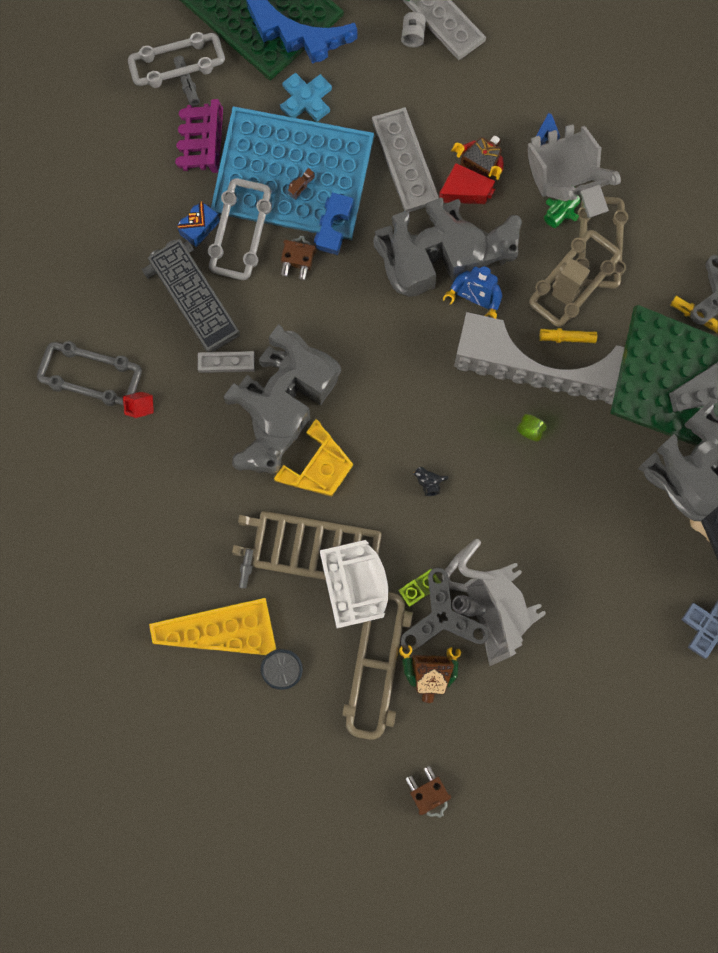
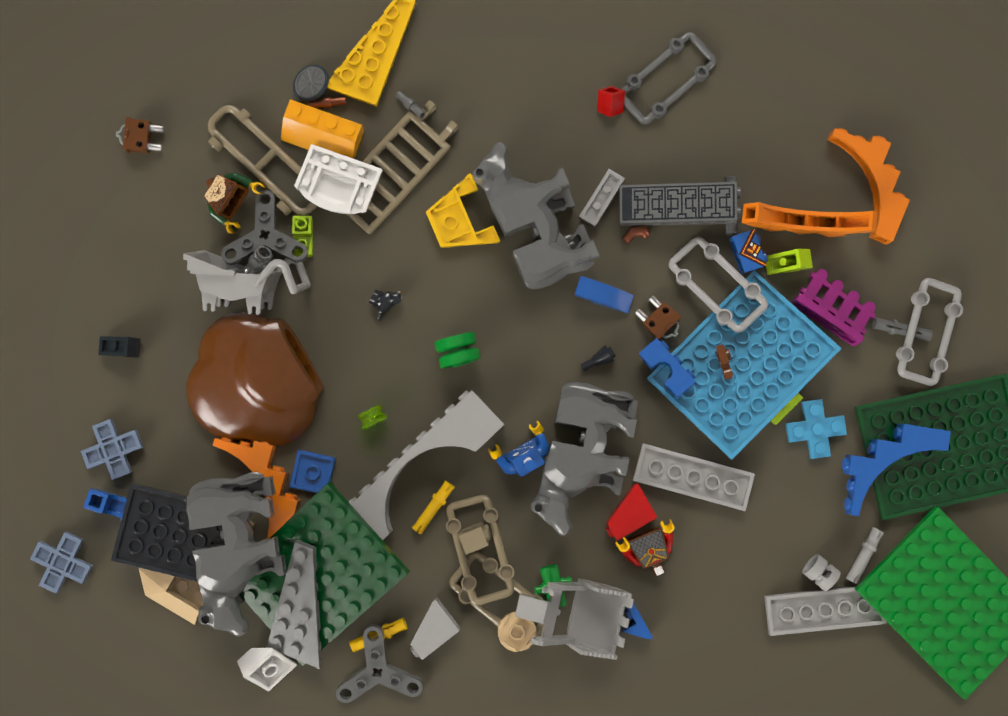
camera: 125 degrees right, 10 degrees up
(91, 145) = (881, 178): none -> orange arch
(142, 186) = (808, 222): none -> orange arch
(185, 188) = (789, 261): none -> lime slope
(237, 319) = (634, 231): none -> copper arm
(289, 643) = (327, 102): none -> copper bar
(306, 312) = (603, 294): none -> blue slope
(318, 629) = (309, 126): none -> light orange slope
(356, 281) = (603, 356): none -> black cone
(378, 9) = (865, 554): none -> light grey pin
(431, 392) = (457, 350): none -> green wheel
(572, 545) = (253, 381): none -> reddish brown plant
(609, 449) = (312, 471): none -> blue tile
(620, 212) = (516, 632): none -> tan tile
(623, 679) = (119, 346): none -> black plate
(632, 497) = (259, 459): none -> orange arch
(662, 275) = (434, 630): none -> light grey slope

